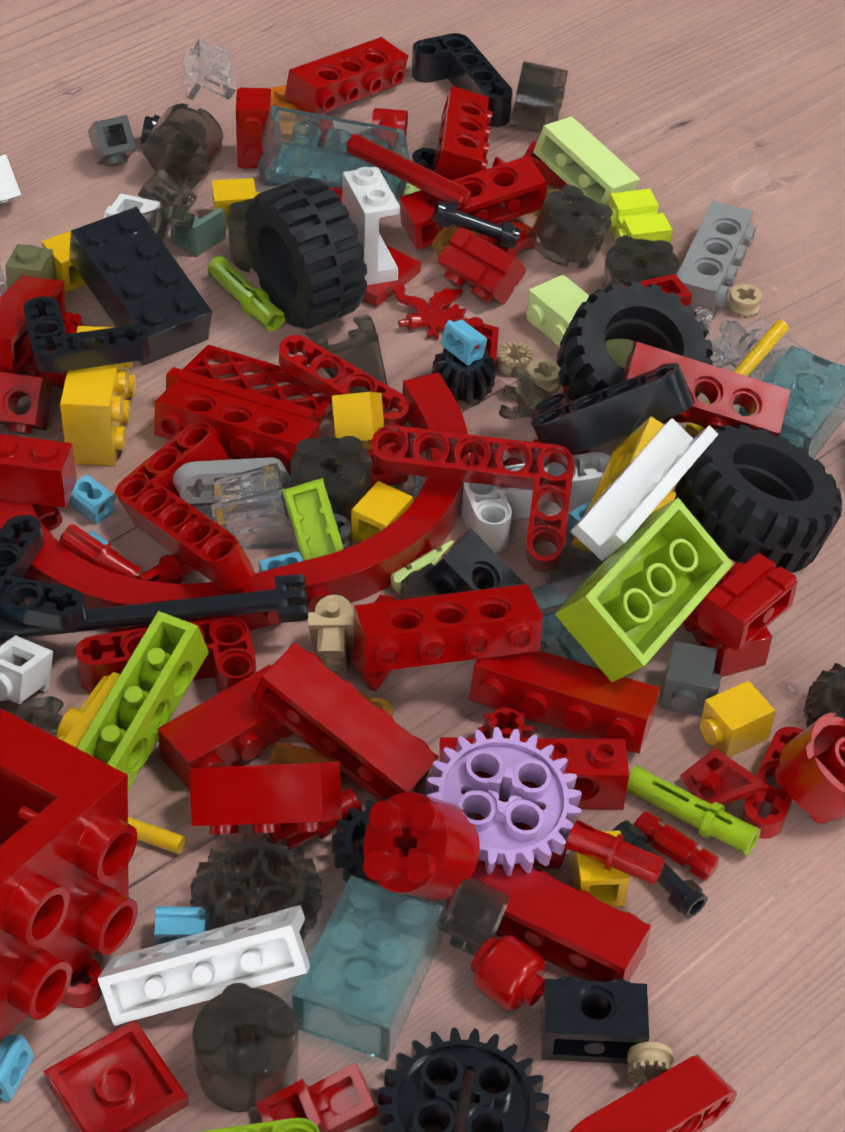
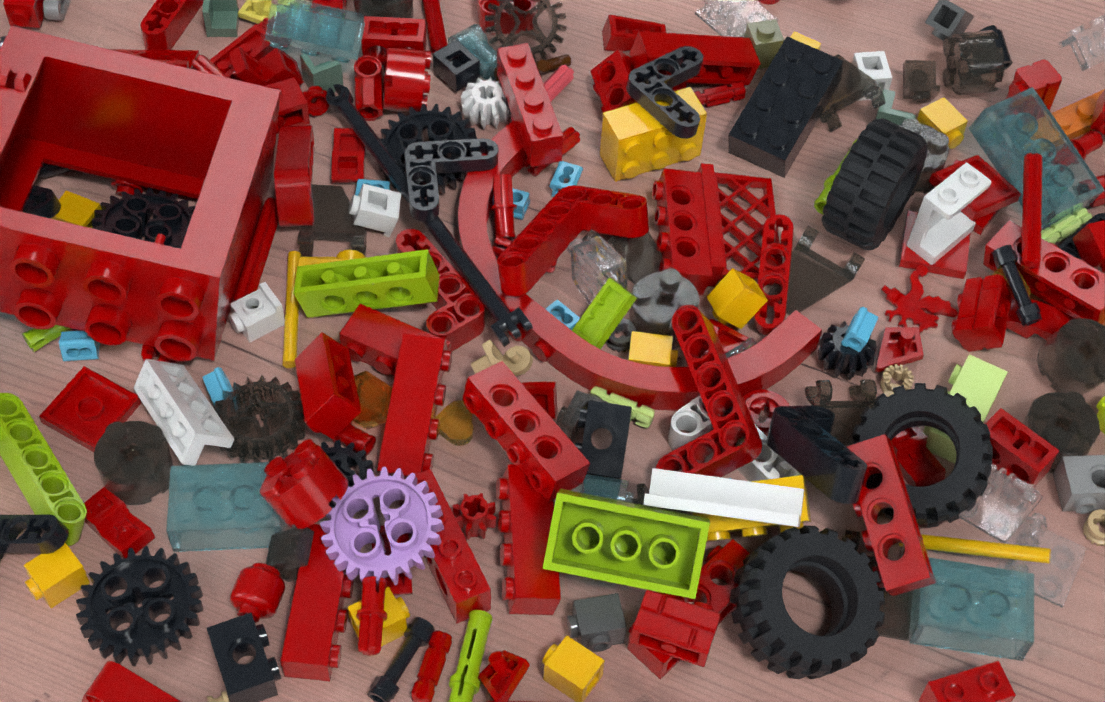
camera: 65 degrees right, 10 degrees up
(196, 479) = (595, 224): light grey beam -> none

